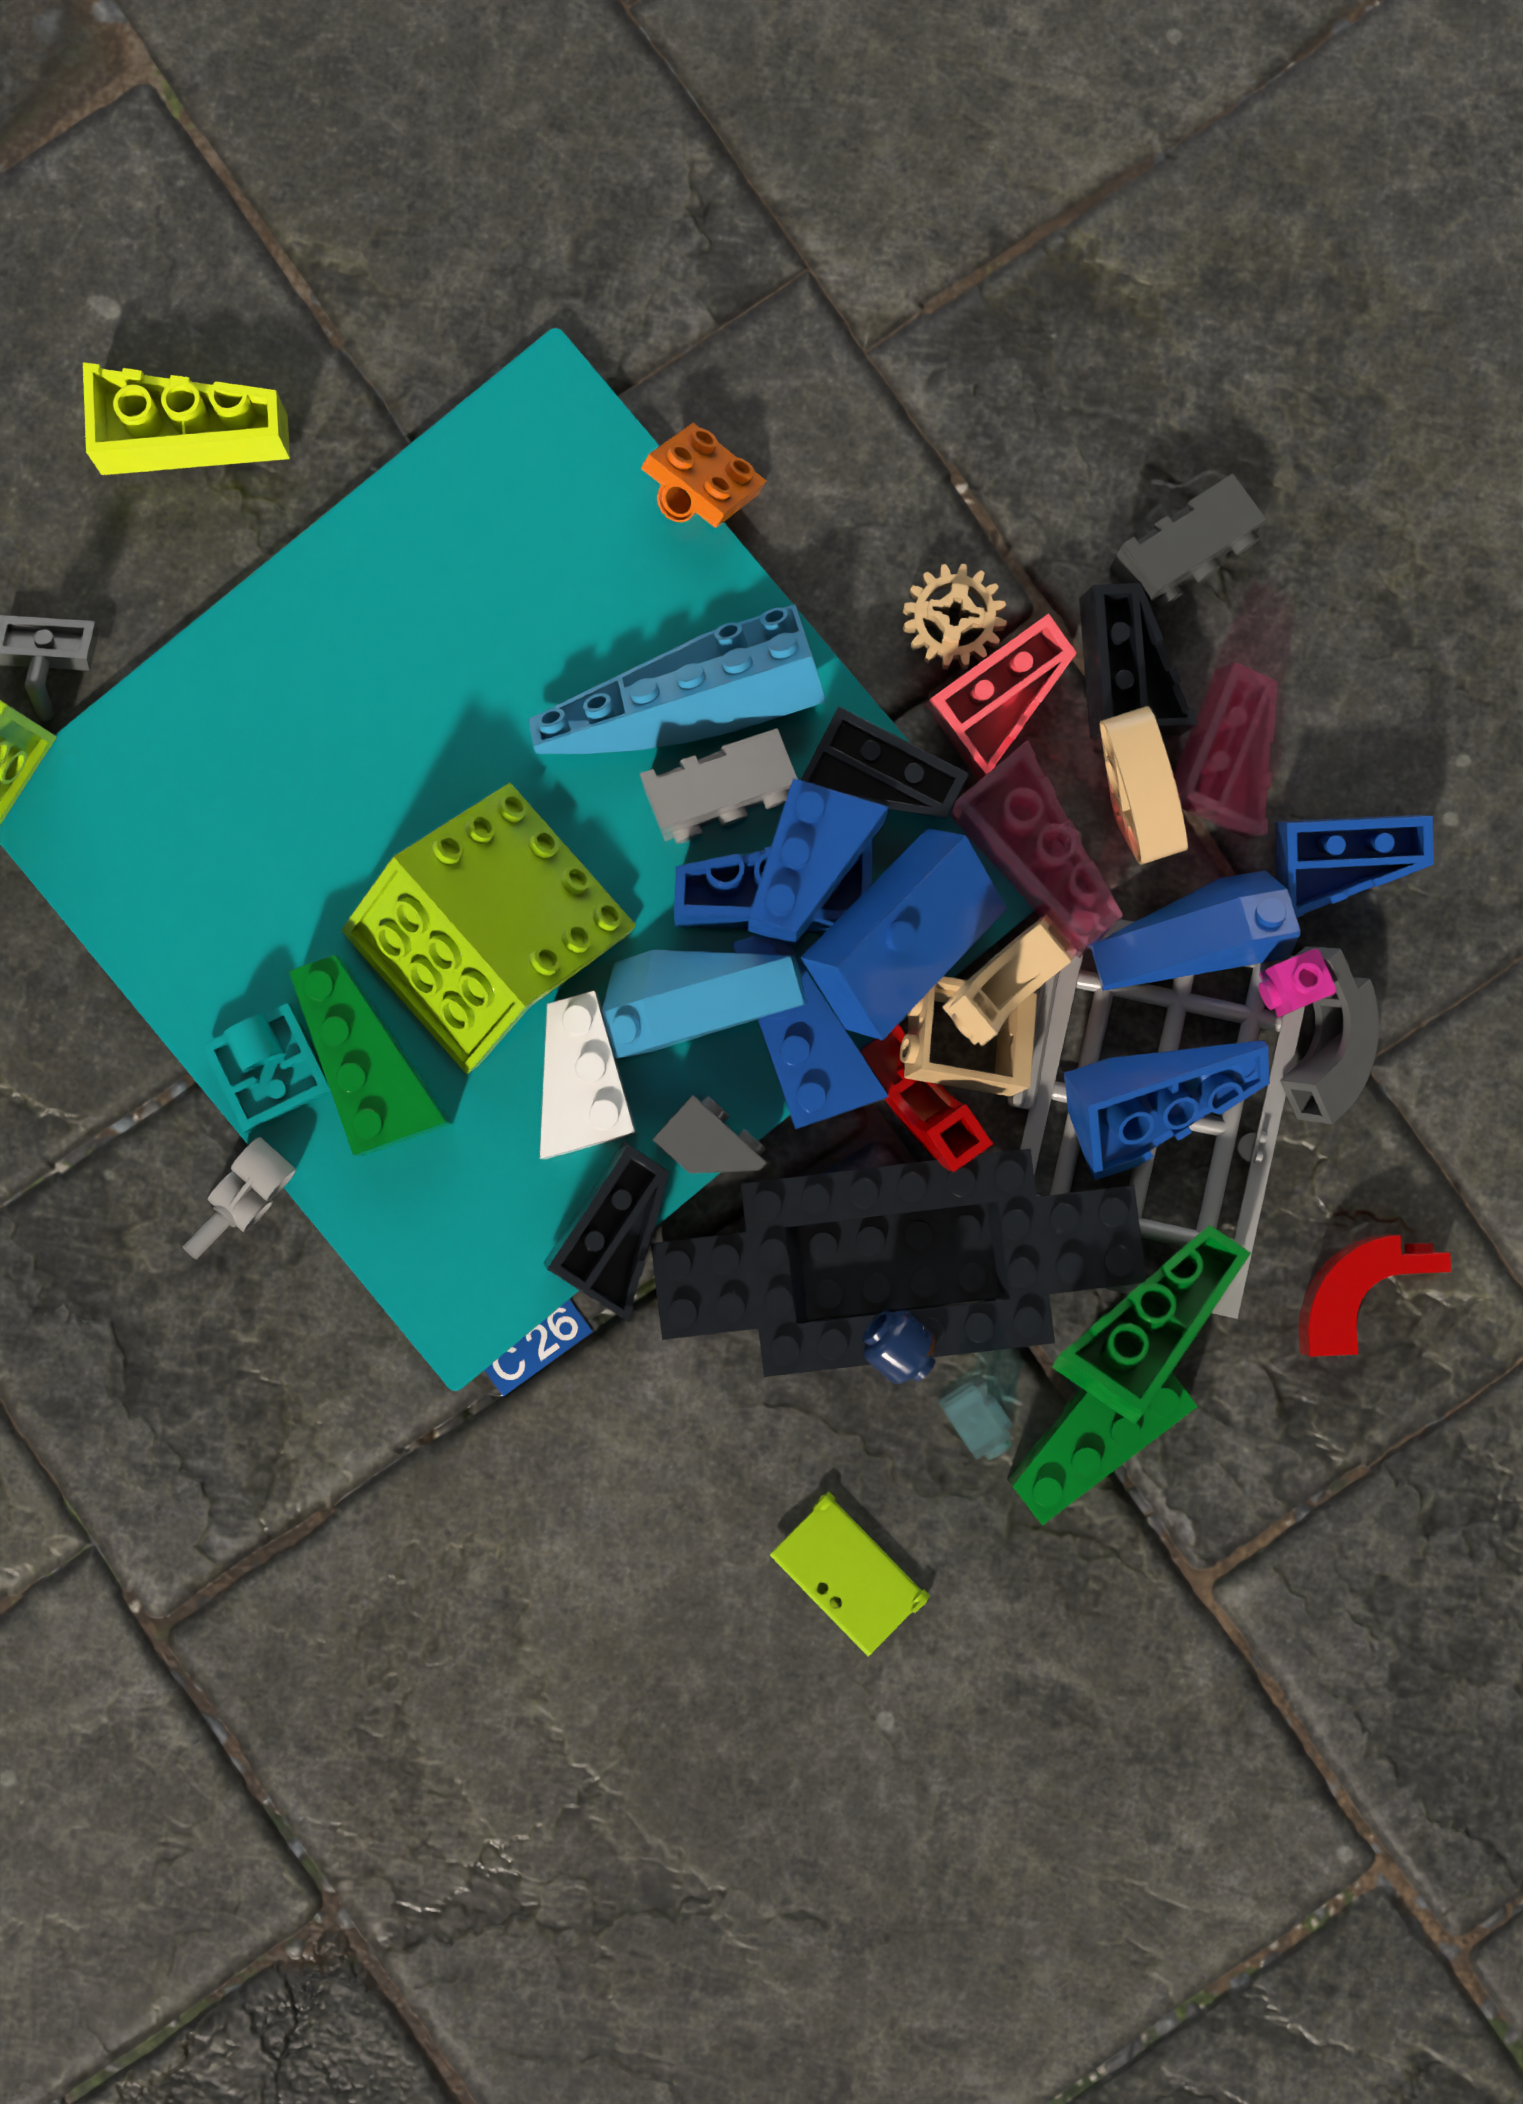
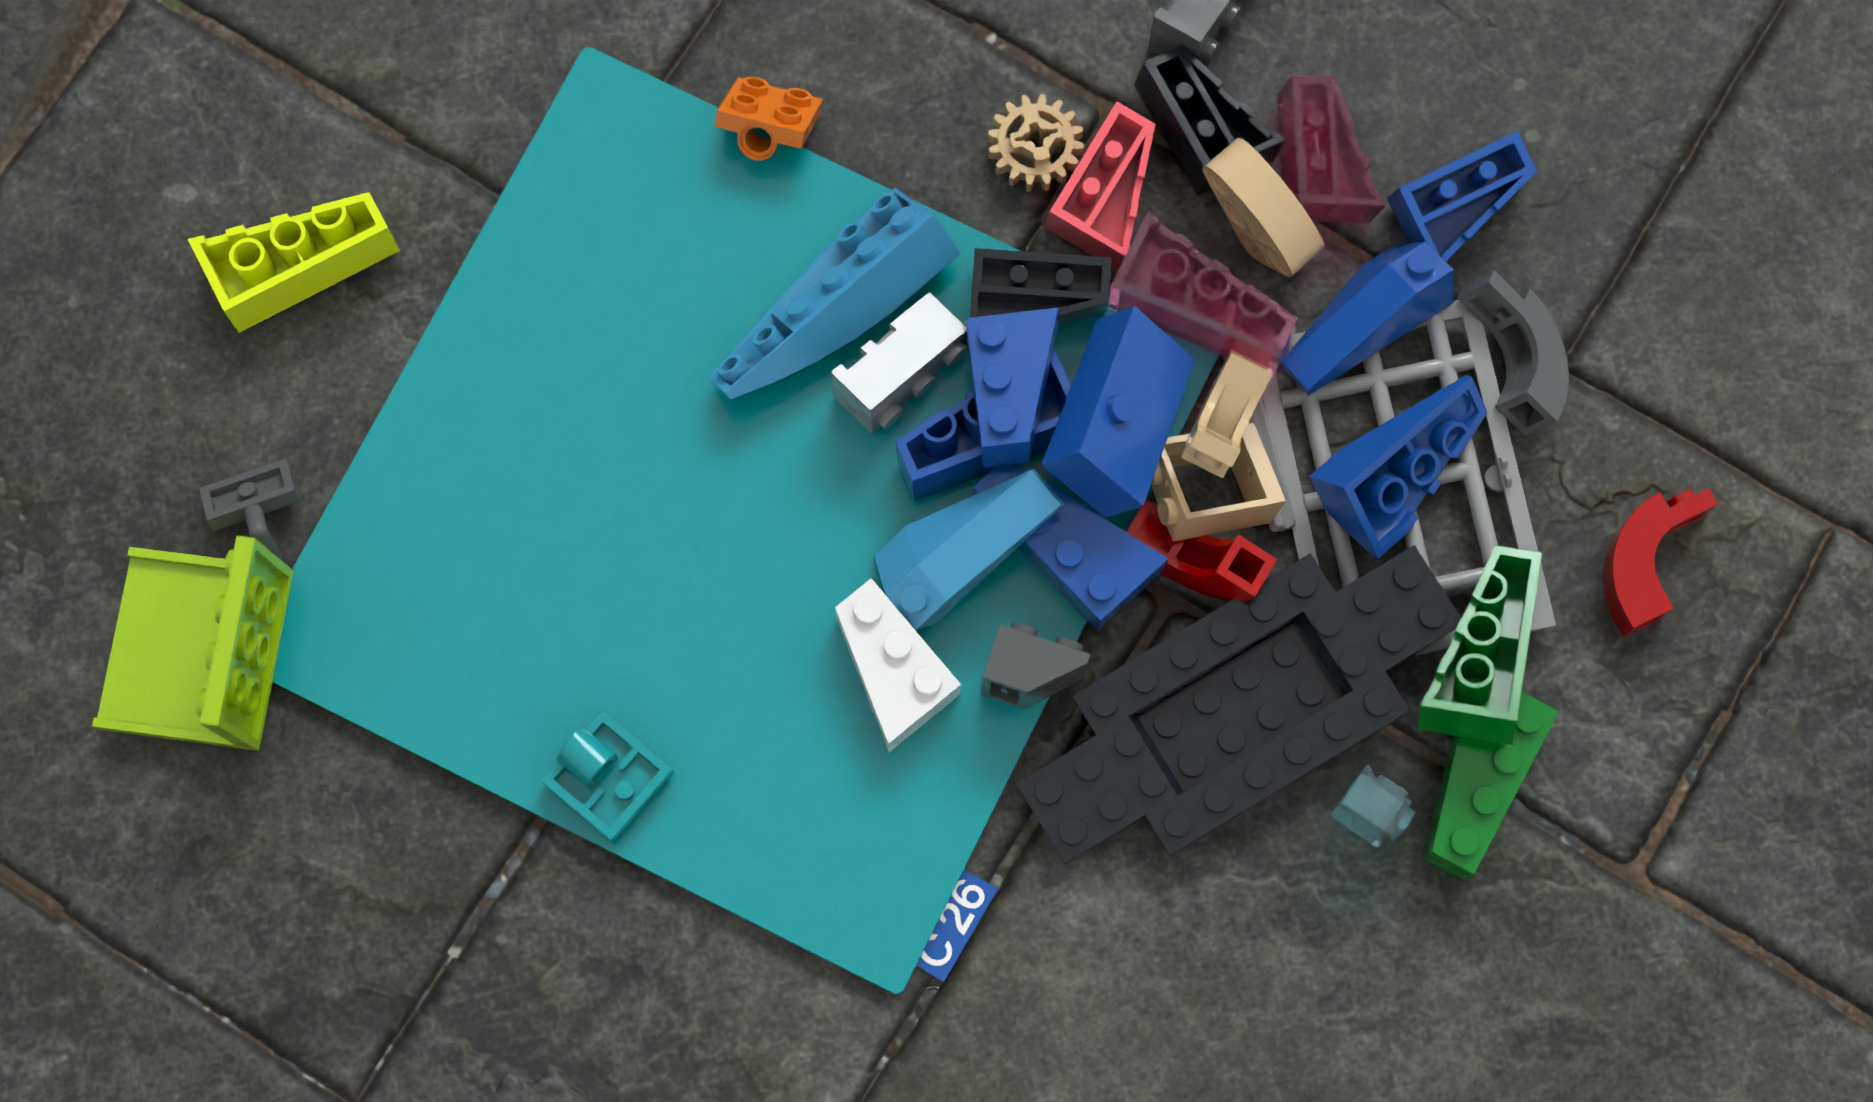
camera: 25 degrees left, 10 degrees down
(243, 1194) = (633, 897): light grey beam -> none
(365, 1066) = (699, 736): green wedge -> none
(483, 923) = (745, 569): lime bracket -> none
(611, 1231) = (978, 782): black wedge -> none
(839, 1560) = (1325, 995): lime door -> none
(899, 1347) = (1278, 768): dark blue head -> none
(1296, 983) = (1469, 316): dark pink bracket -> none

